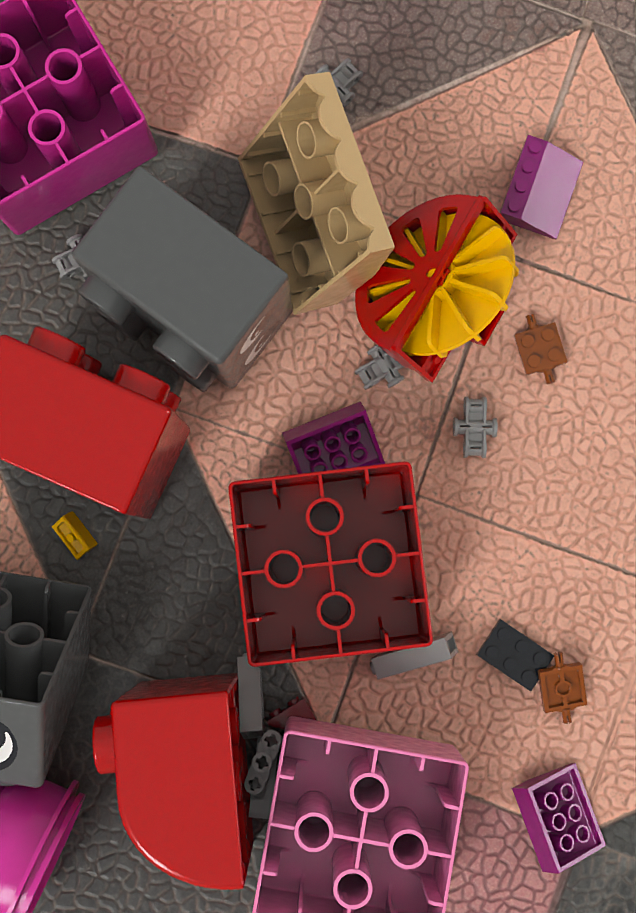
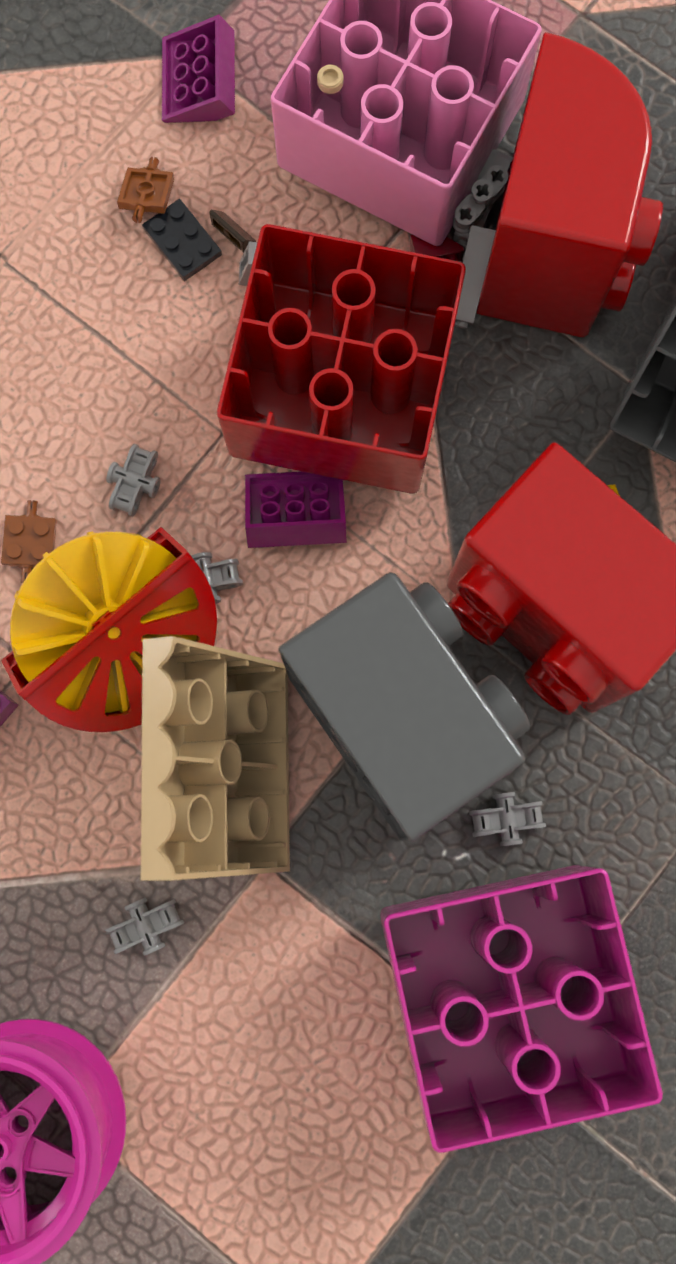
camera: 160 degrees left, 5 degrees down
(421, 798) = (330, 79): none -> tan tile
(474, 678) = (230, 229): none -> dark brown slope

